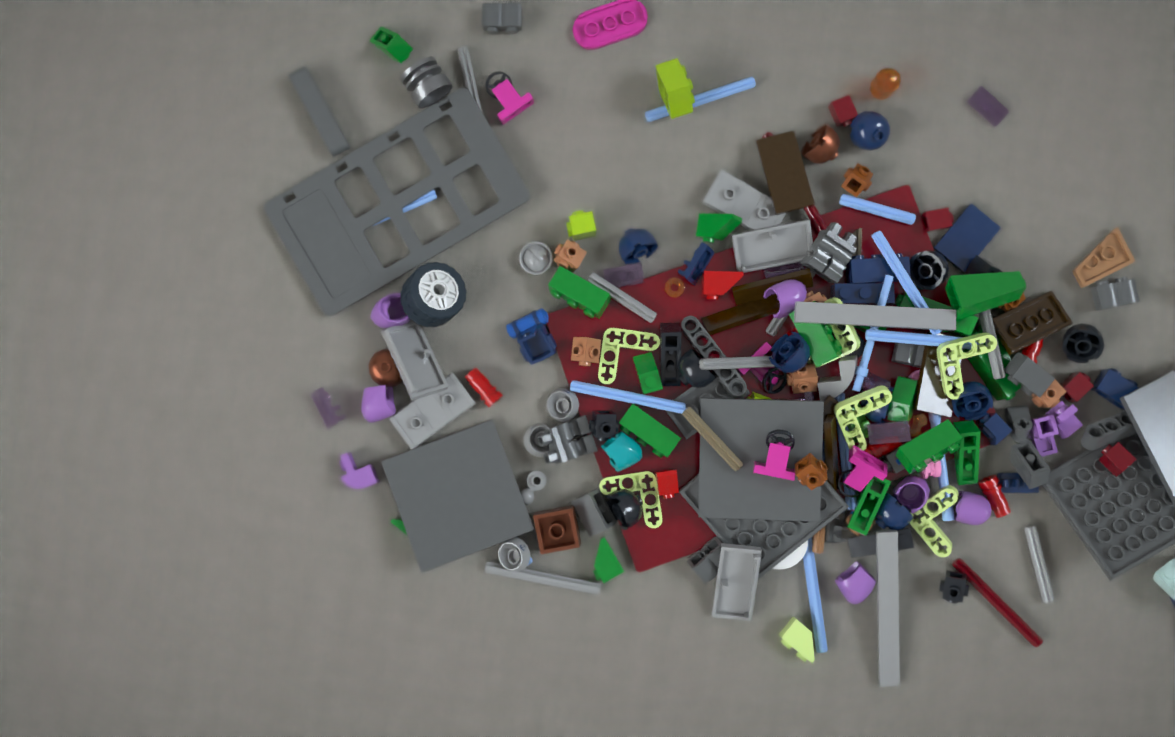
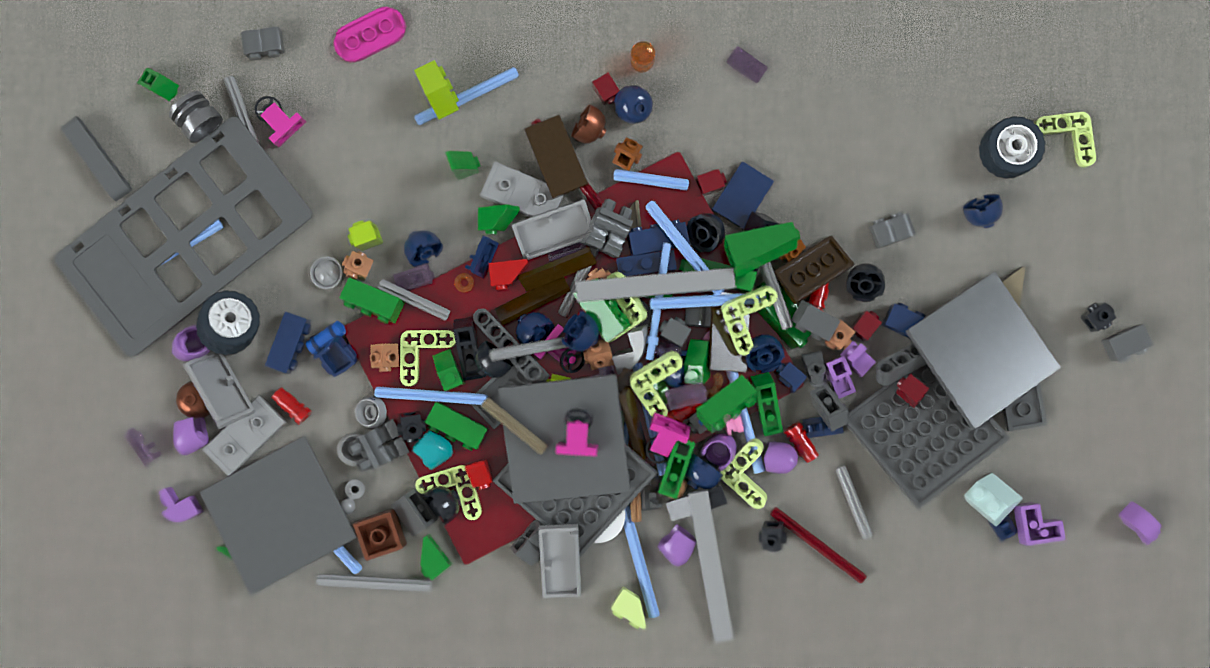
camera: 10 degrees left, 0 degrees up
(489, 323) = (288, 343): none -> dark blue brick
(514, 554) = (341, 564): light grey hat -> none
(690, 167) = (463, 163): none -> green slope
(740, 342) = (533, 328): none -> dark blue cylinder
(788, 293) = (569, 274): medium lavender piece -> none
(811, 471) = (611, 445): dark orange brick -> none
(885, 365) = (674, 331): none -> dark grey brick
(1104, 259) = (878, 198): medium nougat wing -> none

